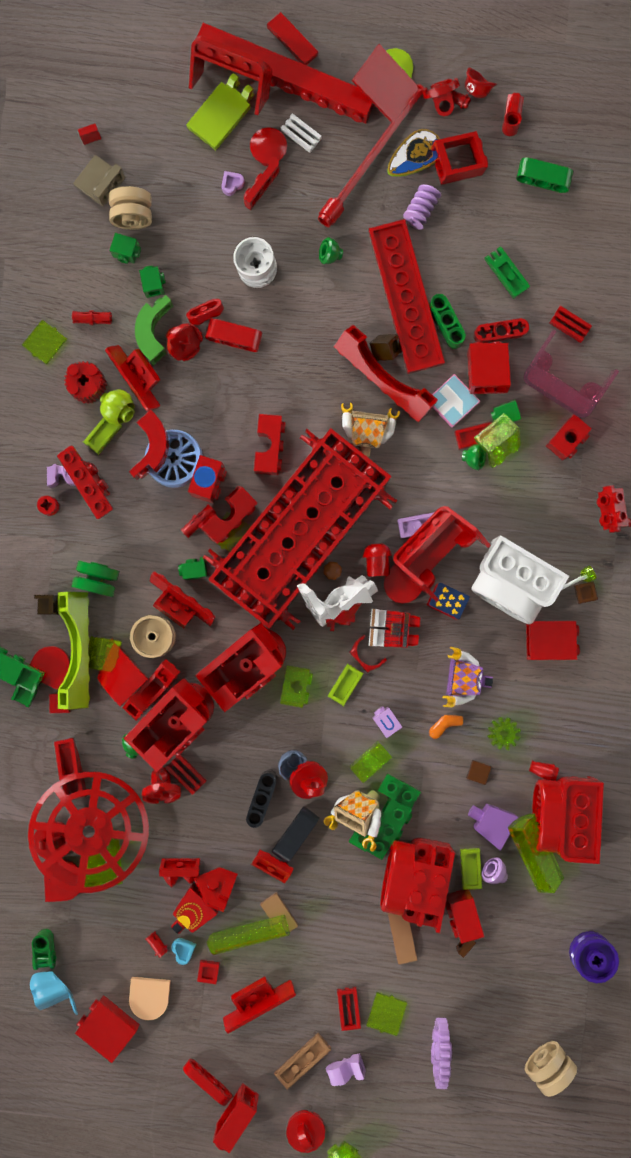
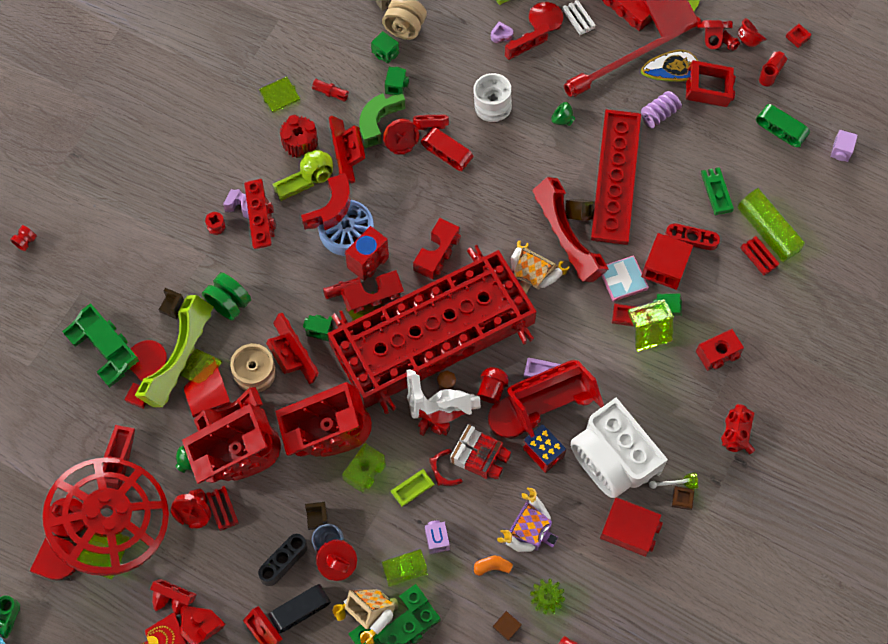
camera: 20 degrees right, 20 degrees down
(273, 747) = (316, 515): none -> dark brown panel
(447, 312) = (645, 201): green beam -> none
(474, 457) = (623, 332): green brick -> none
(524, 64) = (798, 35): none -> red tile
(570, 288) = (771, 225): none -> clear neon green brick
(580, 402) = (711, 283): clear pink windscreen -> none
(610, 173) = (843, 145): none -> lavender brick

